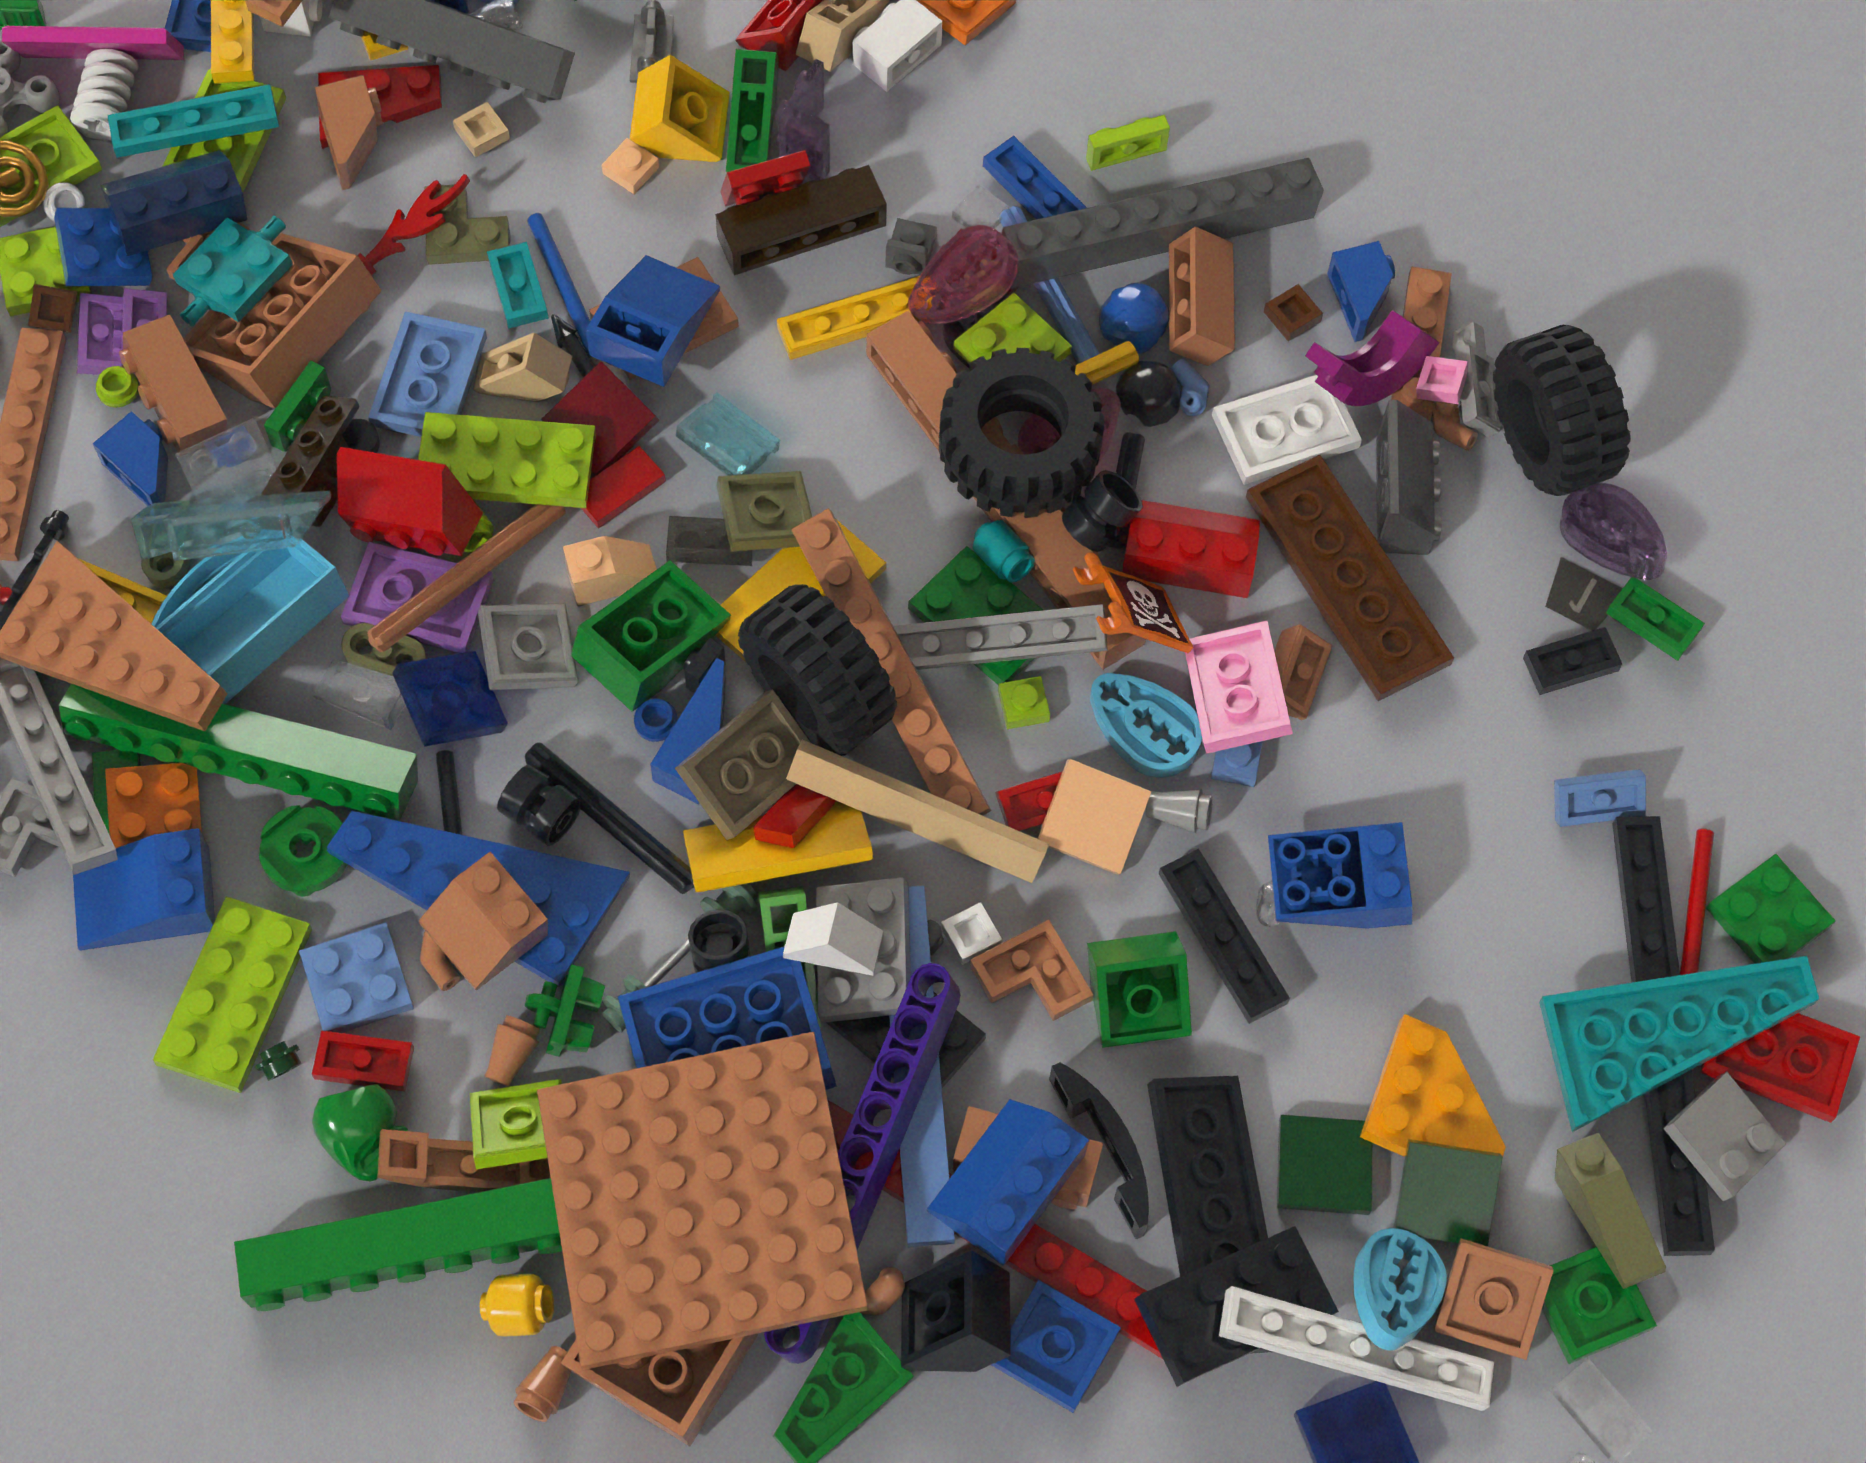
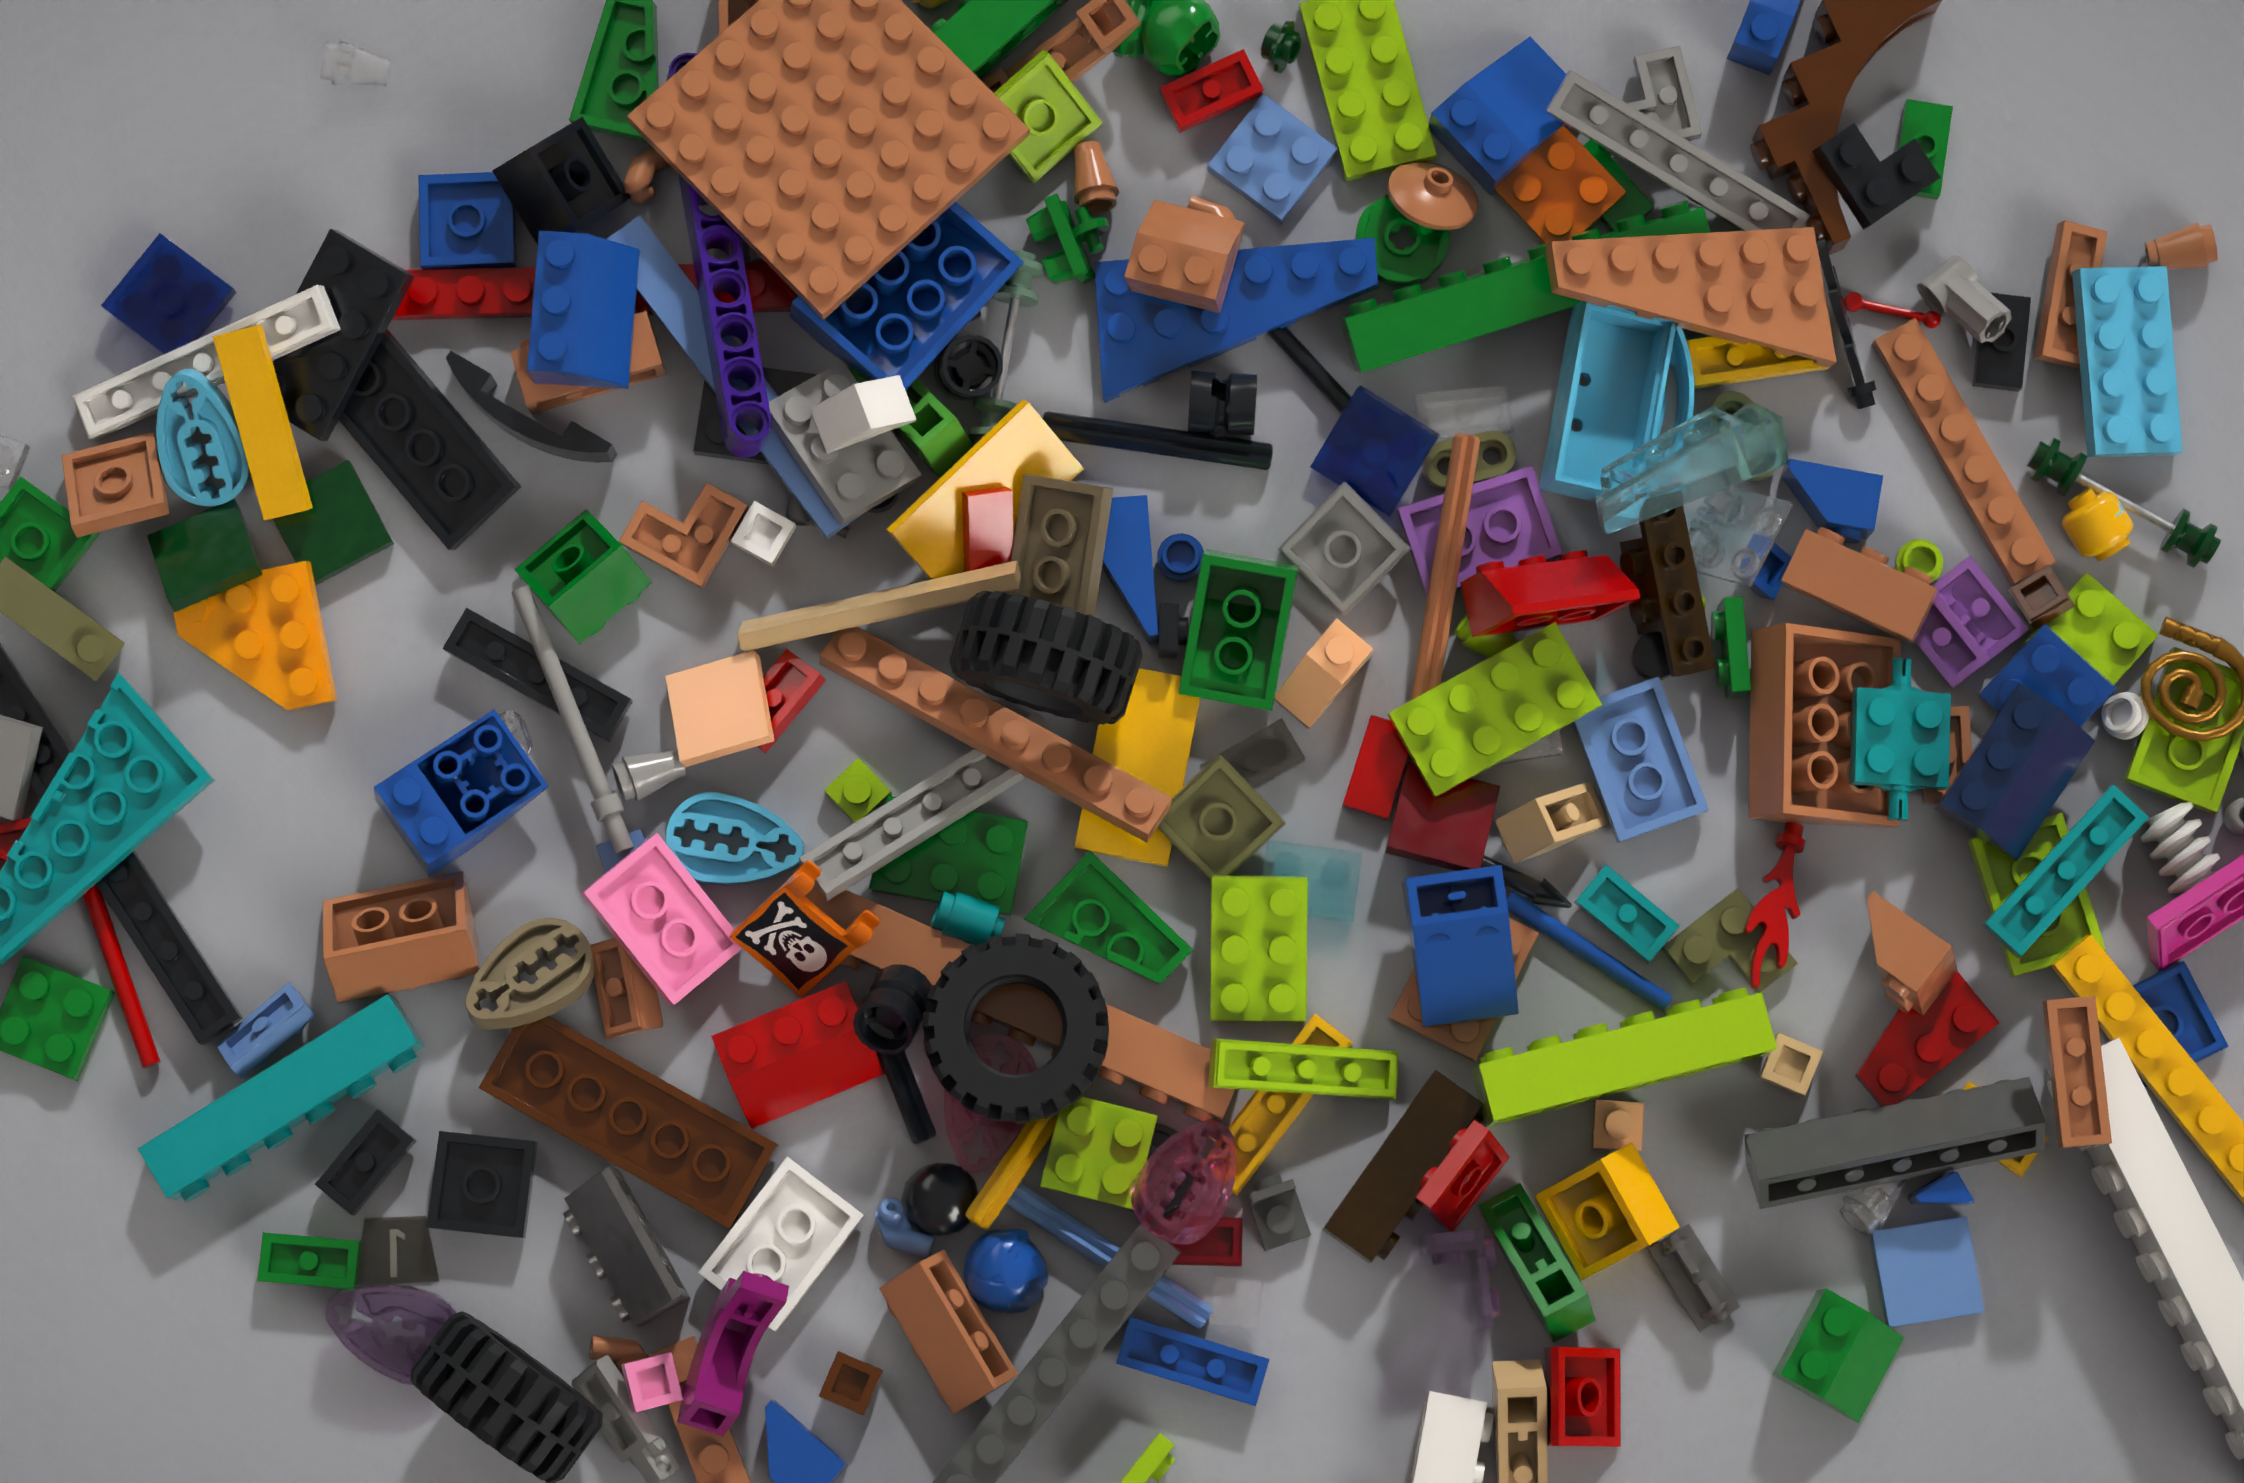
camera: 150 degrees right, 15 degrees up
(255, 861) = (1432, 195): none -> nougat dish
(595, 184) = (1623, 1059): none -> lime brick
(798, 414) = (1258, 948): none -> lime plate
(826, 312) = (1303, 1069): none -> lime tile
(894, 500) = (1109, 920): none -> green wing
(1229, 797) = (606, 804): none -> light grey bar
(1337, 1261) = (262, 422): none -> yellow tile
(1355, 687) = (519, 1000): none -> dark tan piece
(1454, 803) = (399, 937): none -> nougat slope
(1490, 594) = (482, 1184): none -> black plate
(1613, 740) = (281, 1098): none -> teal brick

